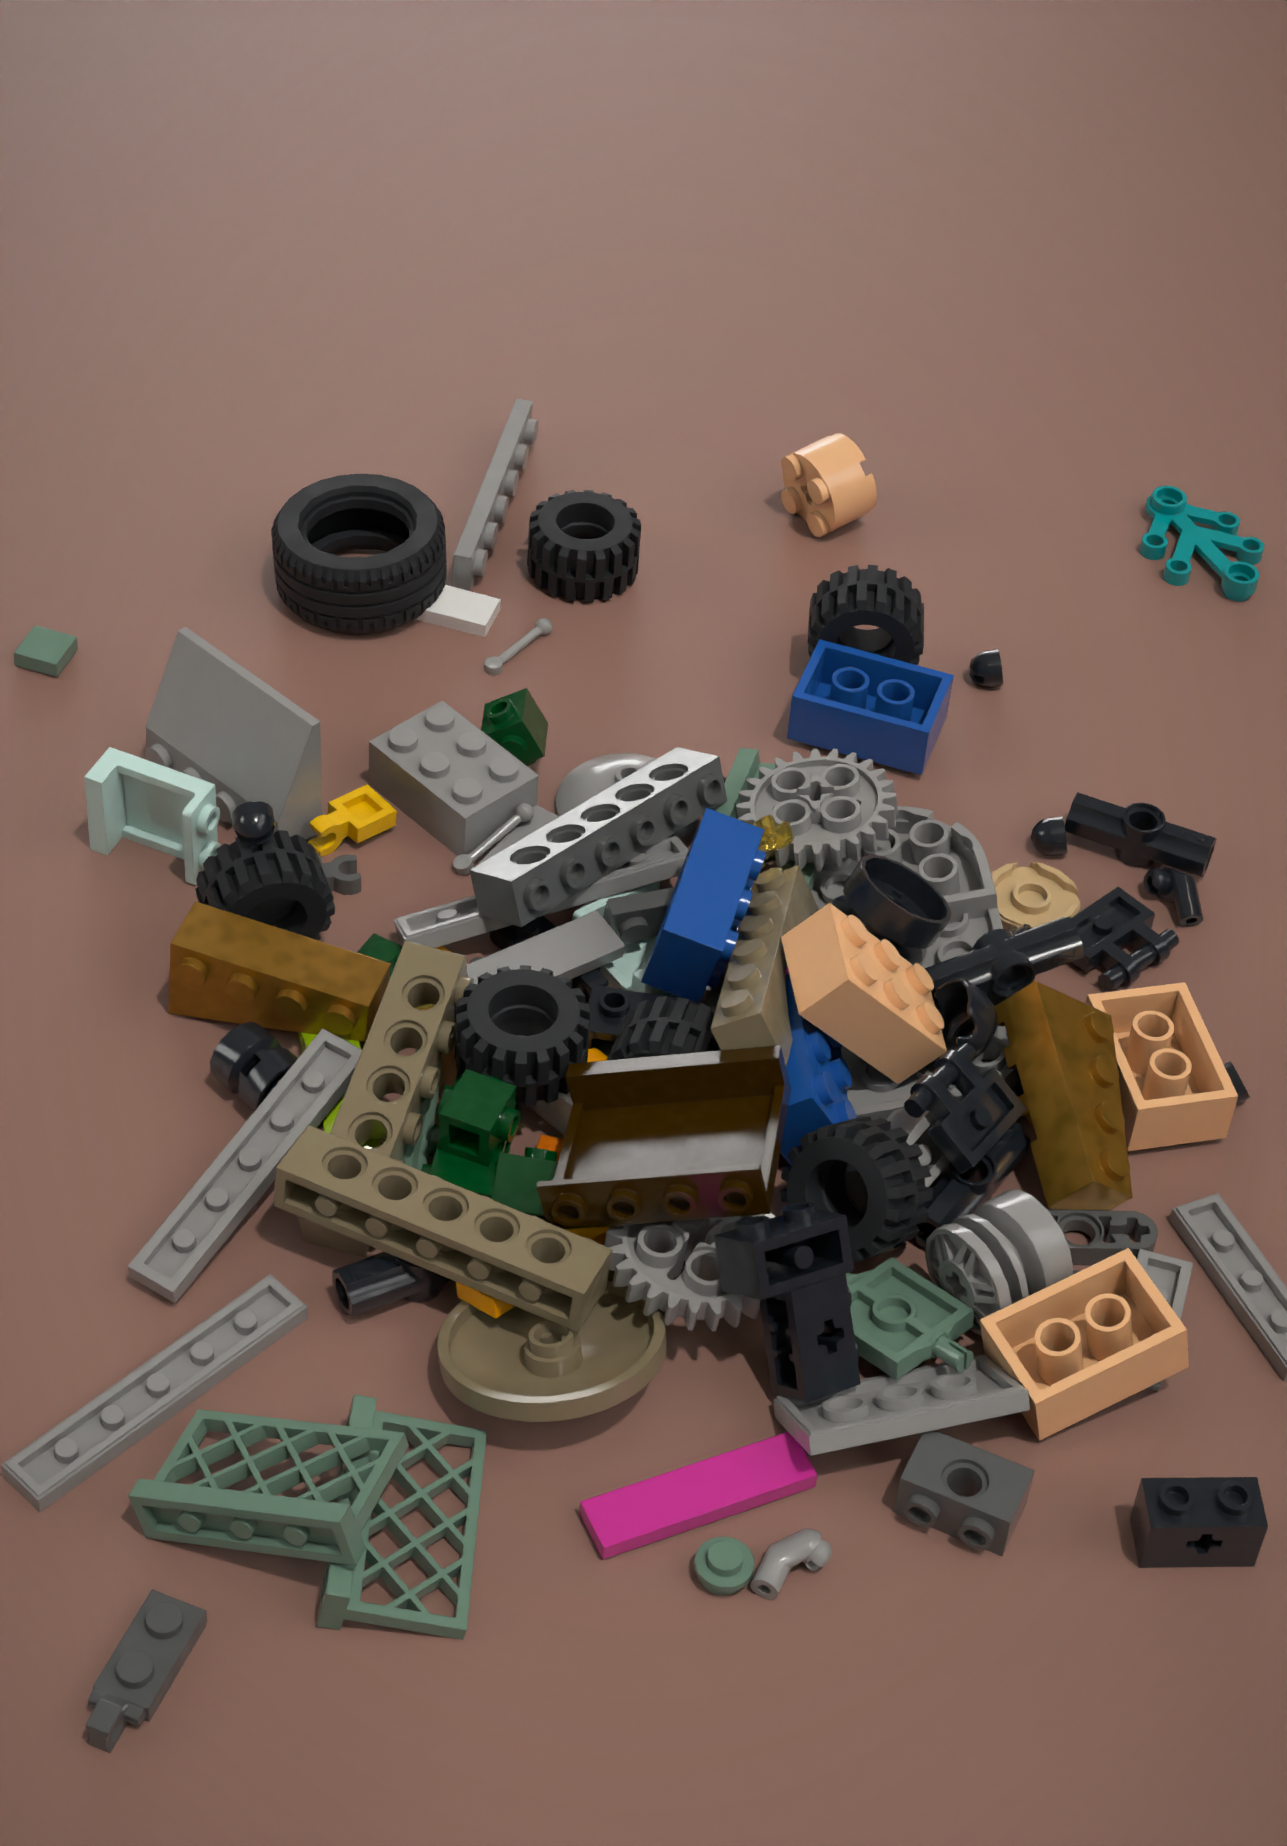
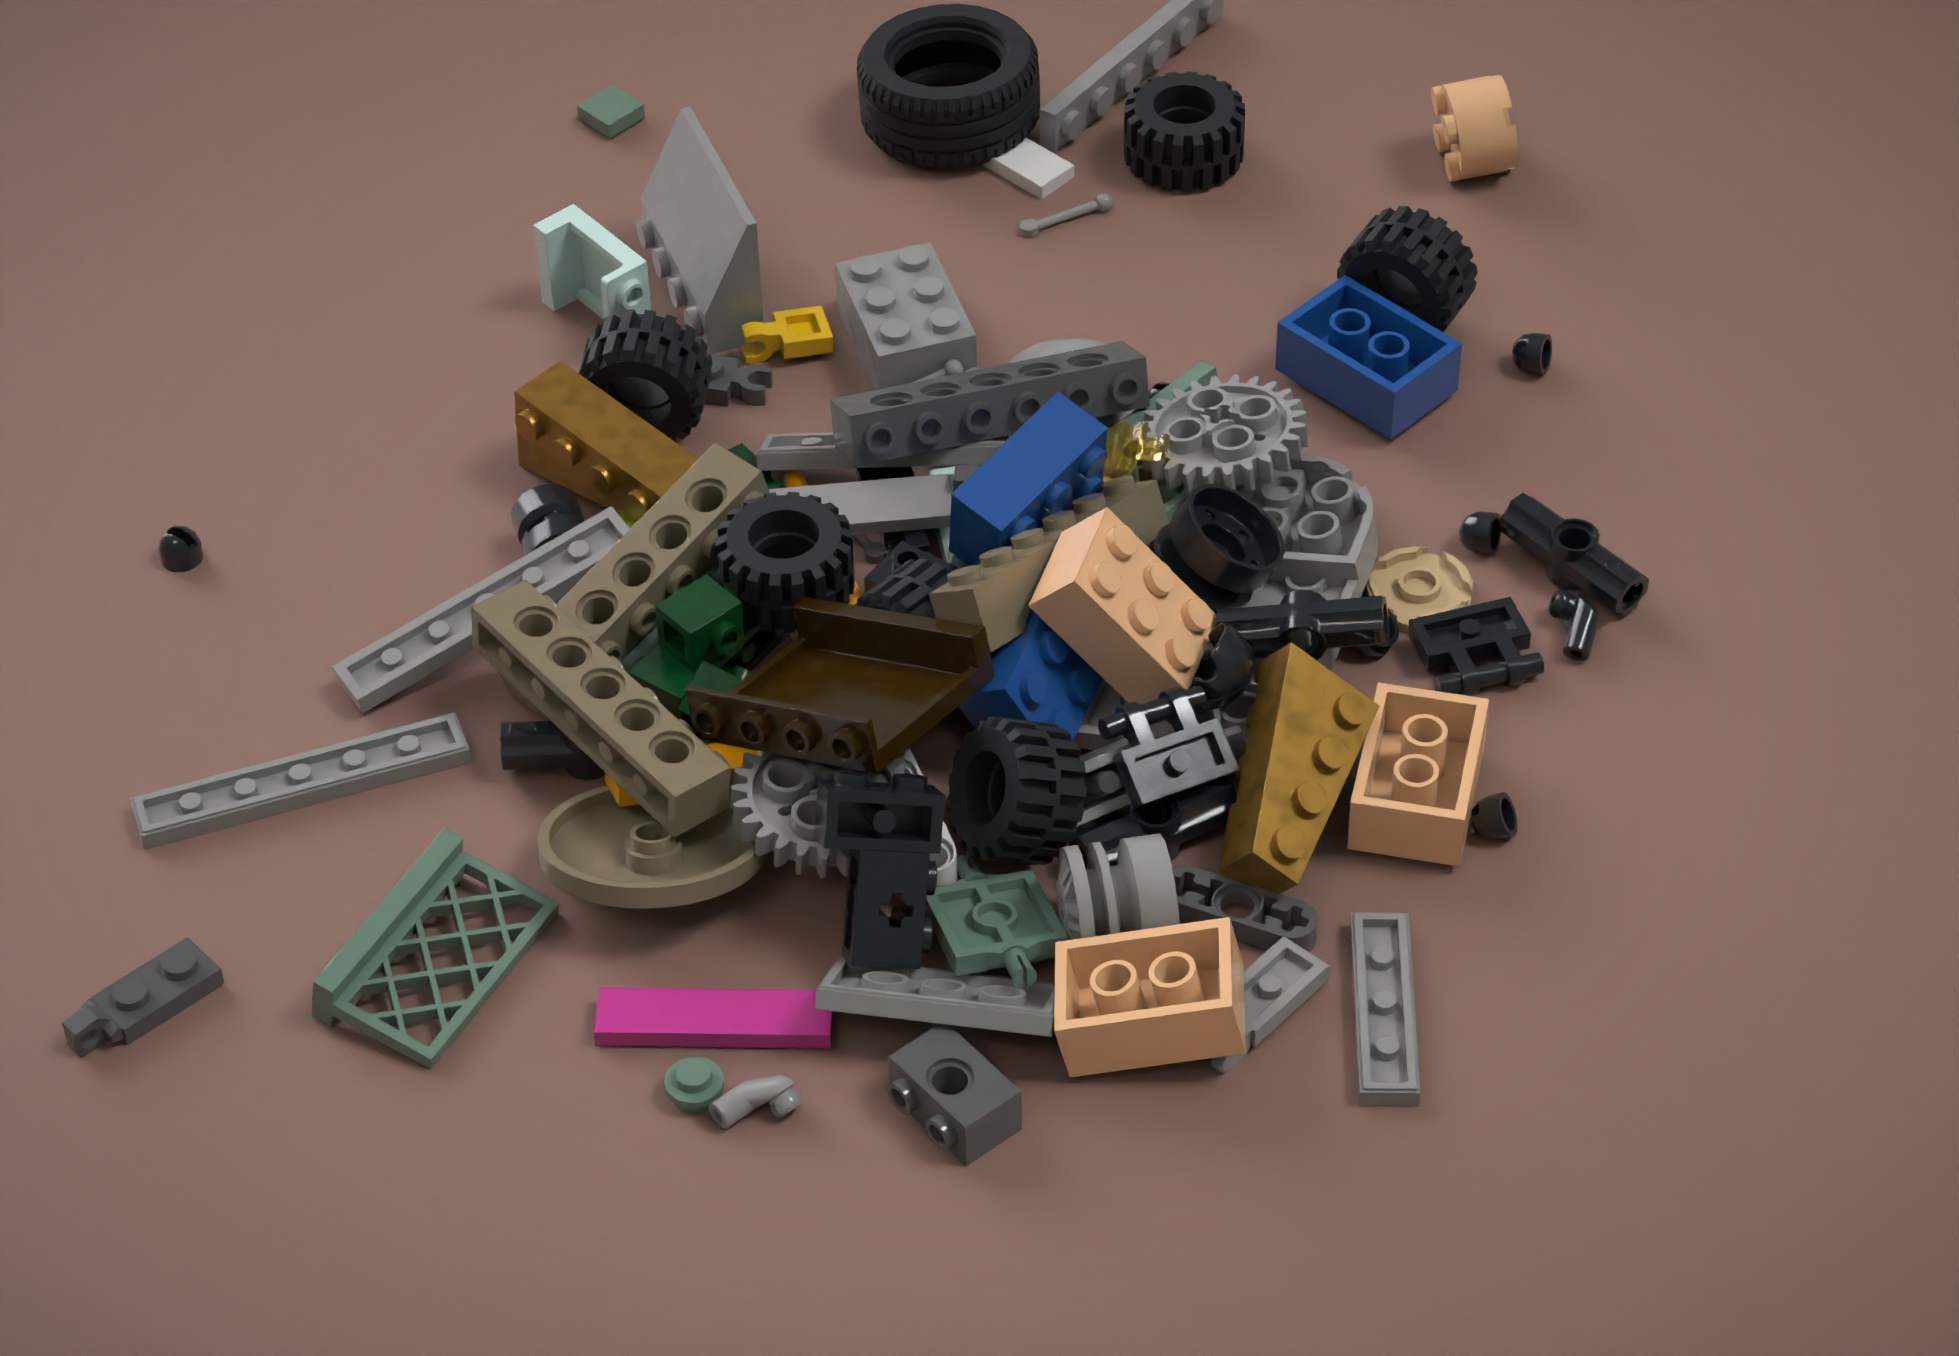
camera: 30 degrees right, 0 degrees up
(253, 822) = (639, 299): black hinge -> none
(258, 1517) = (300, 903): sand green fence -> none
(517, 725) = (994, 289): dark green brick -> none
(1169, 506) = (1860, 240): teal plant -> none
(1198, 1522) = (1159, 1192): black brick -> none

